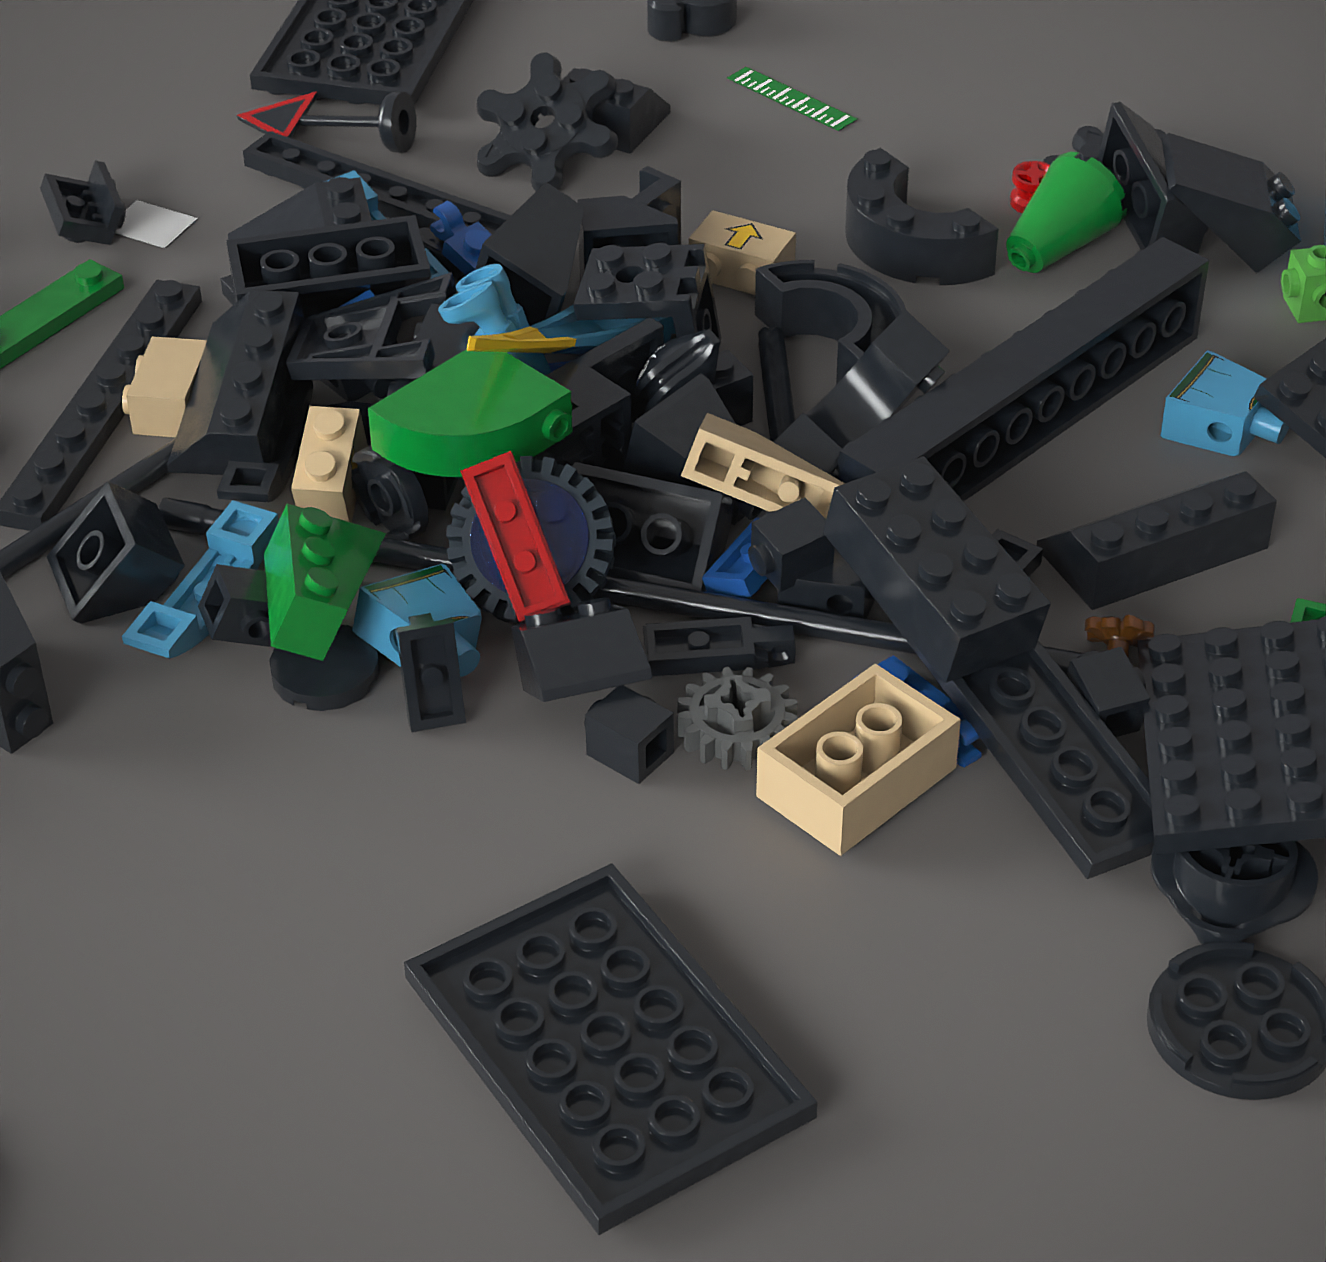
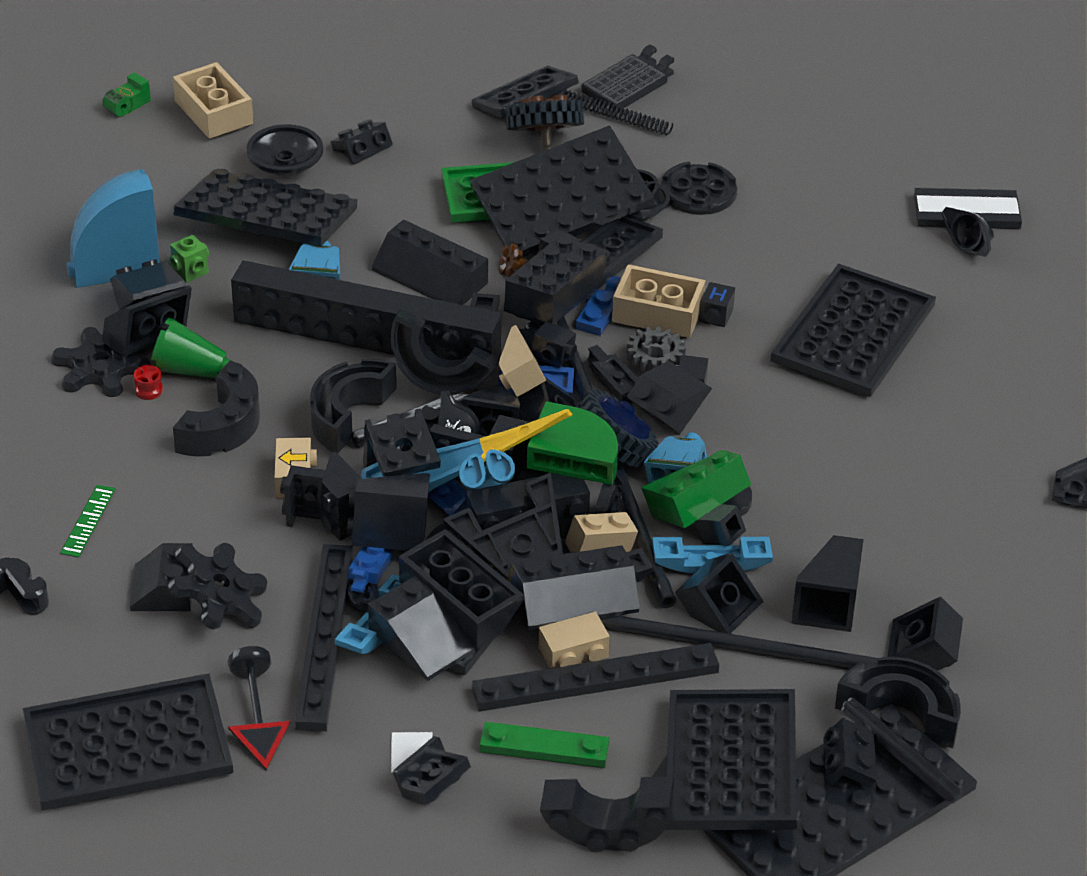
camera: 120 degrees left, 0 degrees up
(430, 673) = (717, 433): black plate -> none
(515, 535) = (635, 412): red tile -> none
(811, 855) = (717, 304): none -> black brick

